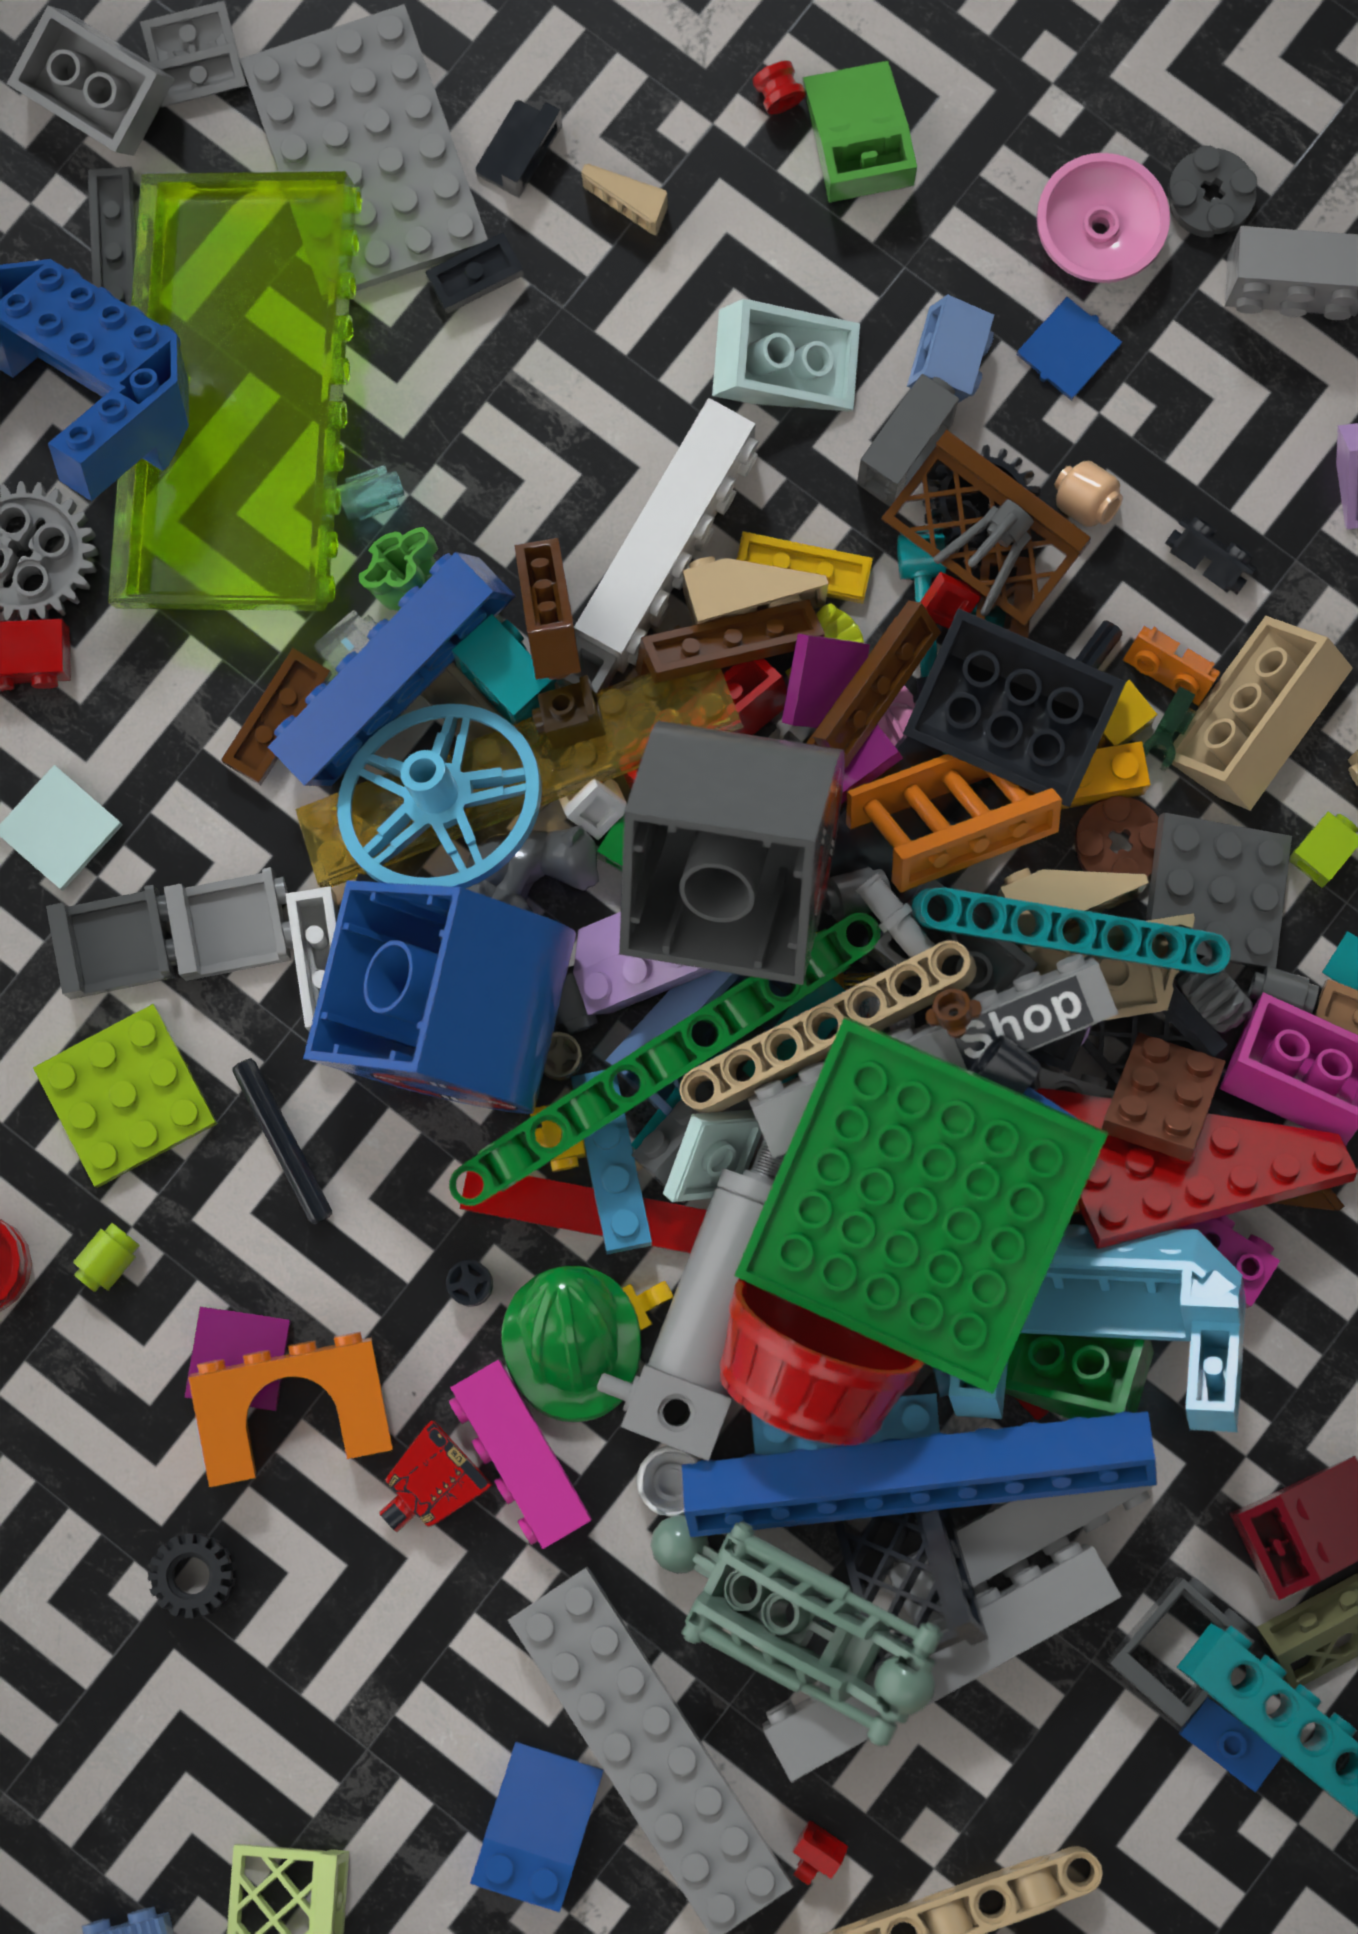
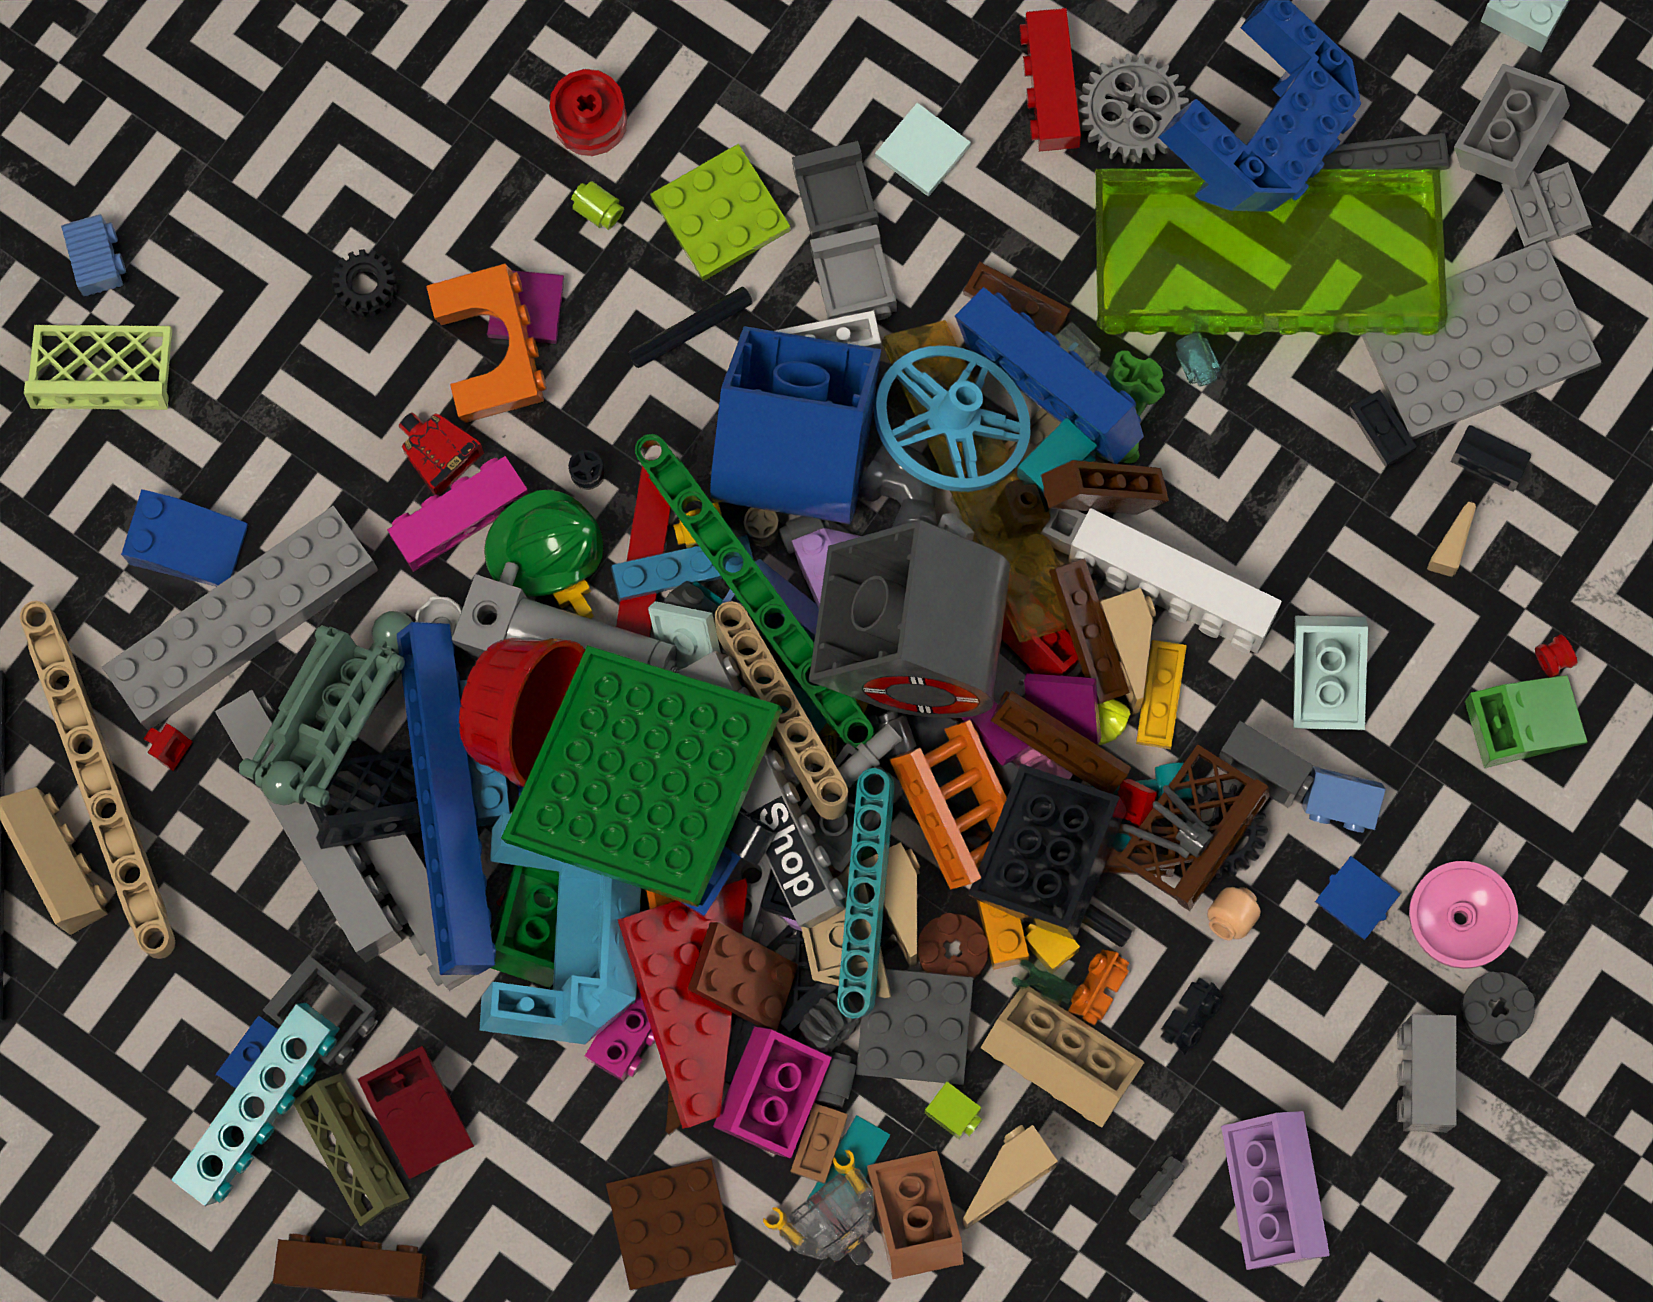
camera: 90 degrees right, 5 degrees down
(951, 1001) = (797, 789): reddish brown plate -> none

